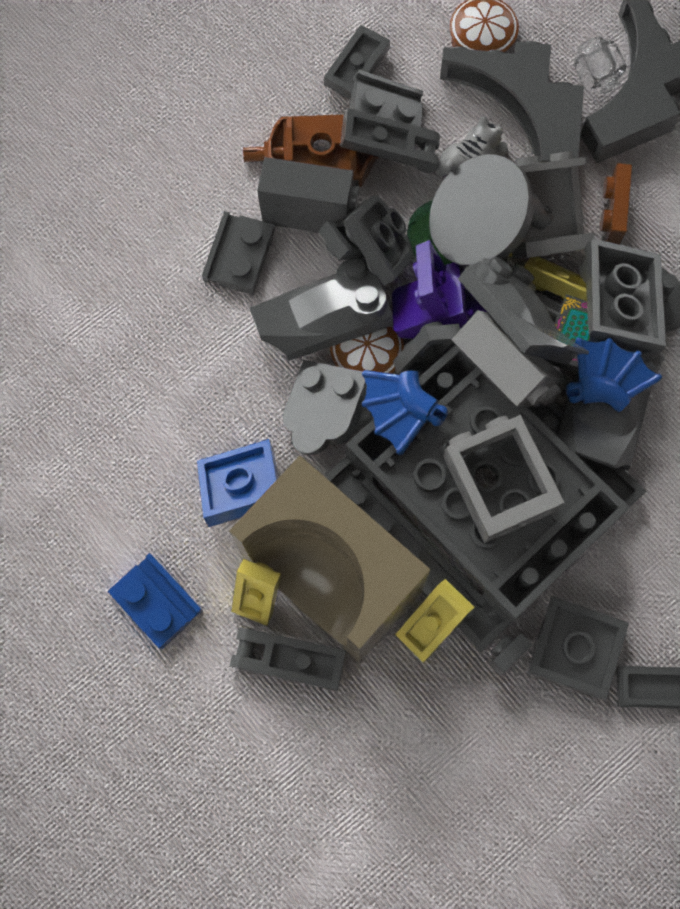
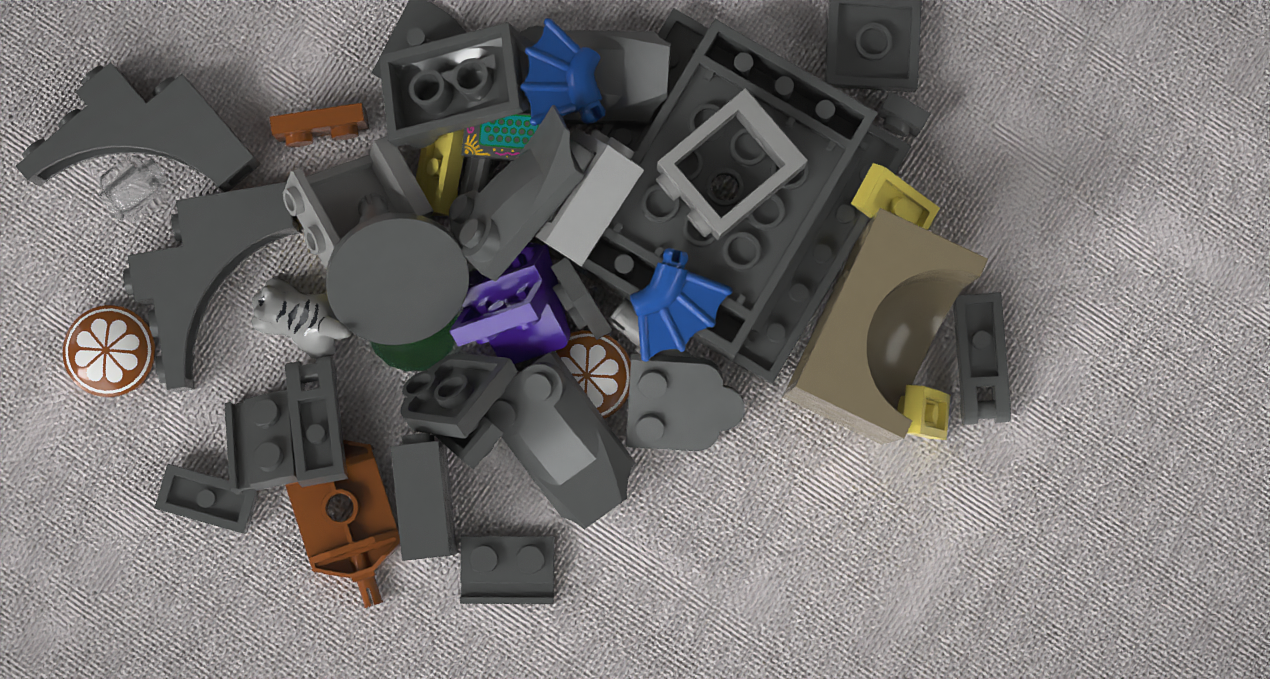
camera: 110 degrees left, 10 degrees up
(155, 601) = (961, 530): blue plate -> none
(235, 481) = (803, 473): plate -> none

